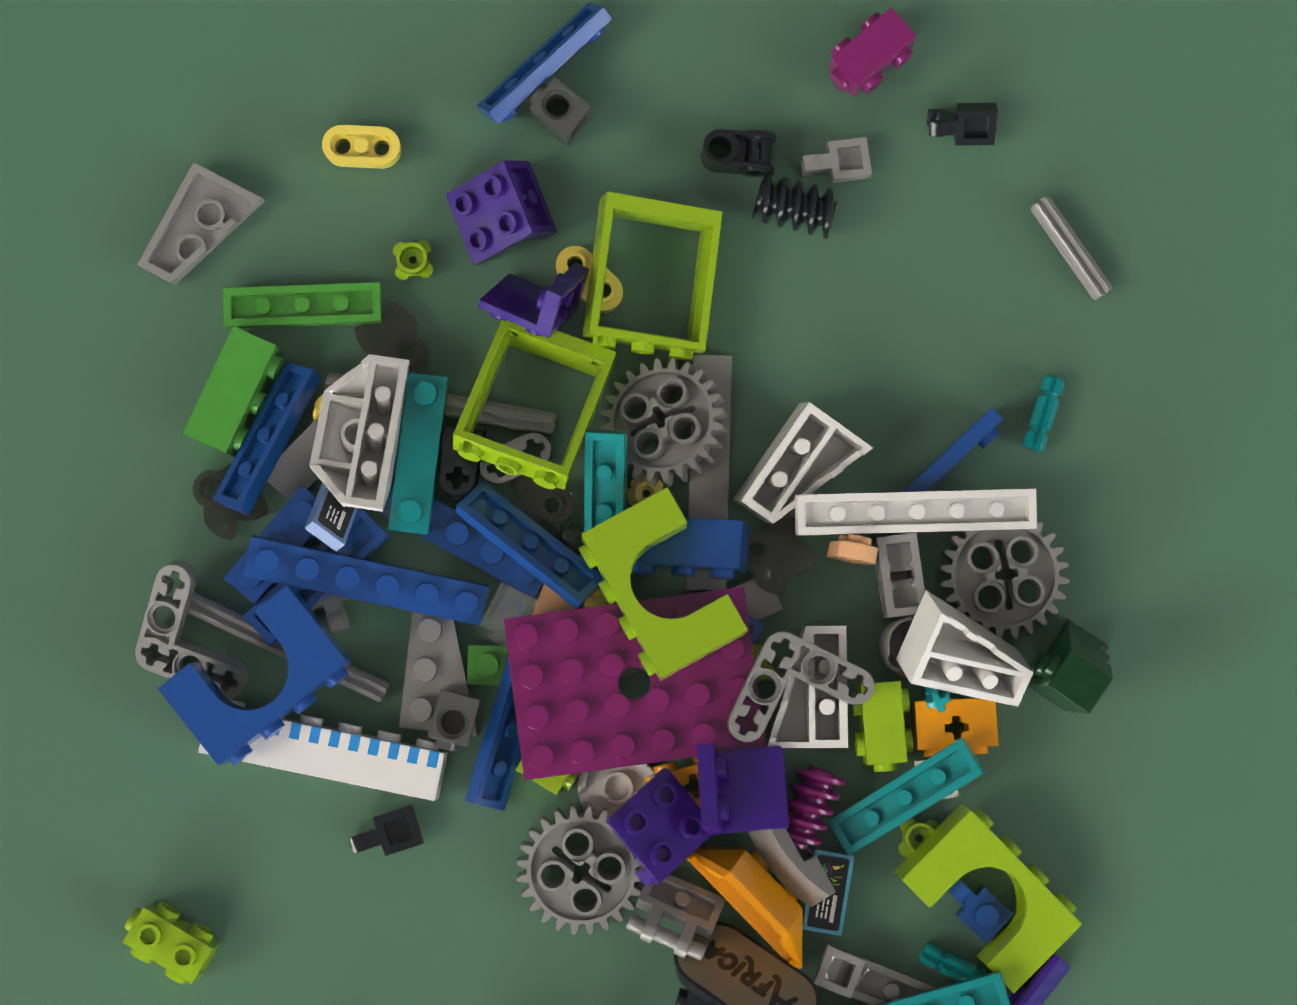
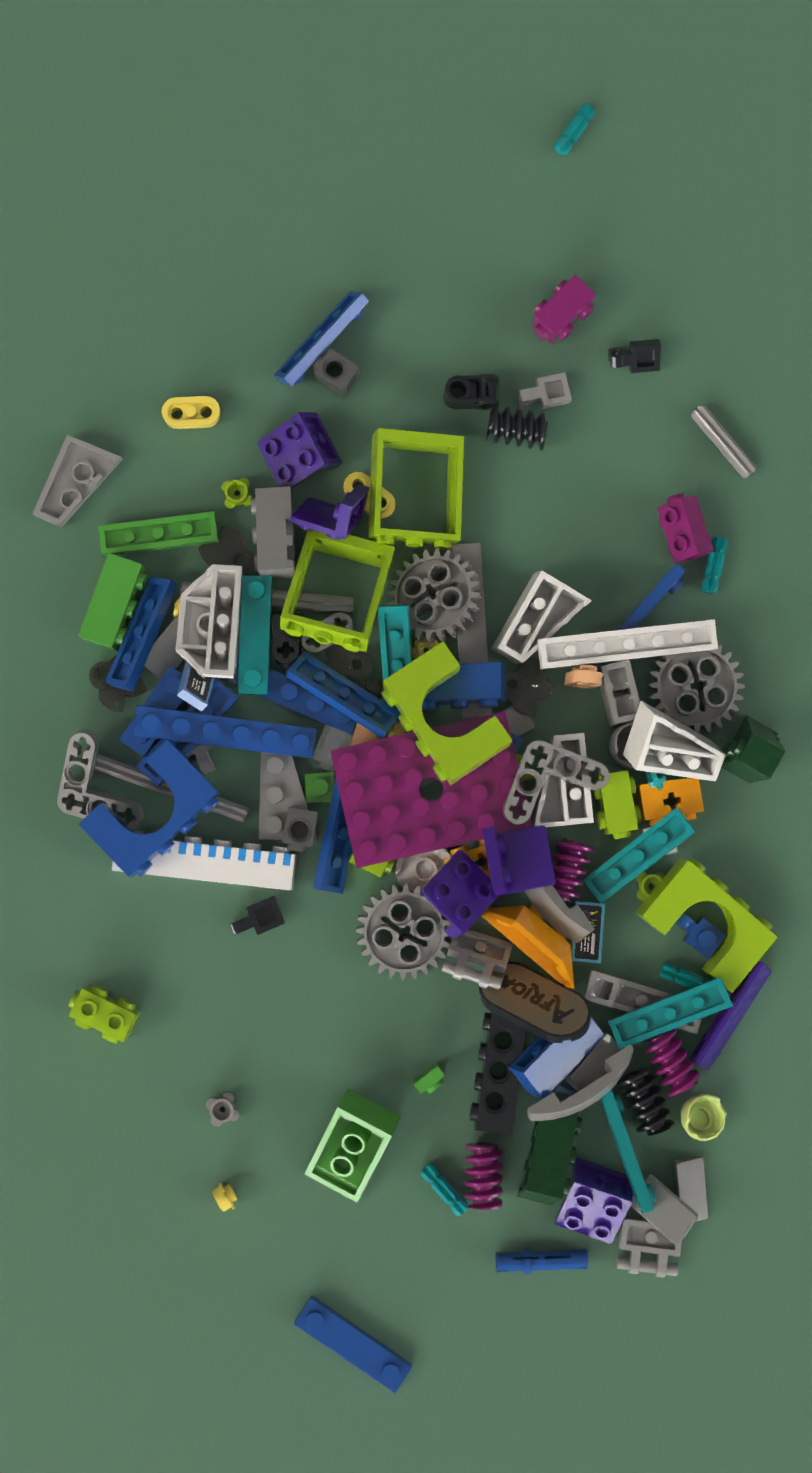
camera: 10 degrees left, 0 degrees up
(456, 319) = (274, 532): none -> light grey wedge
(1007, 361) = (684, 528): none -> magenta brick

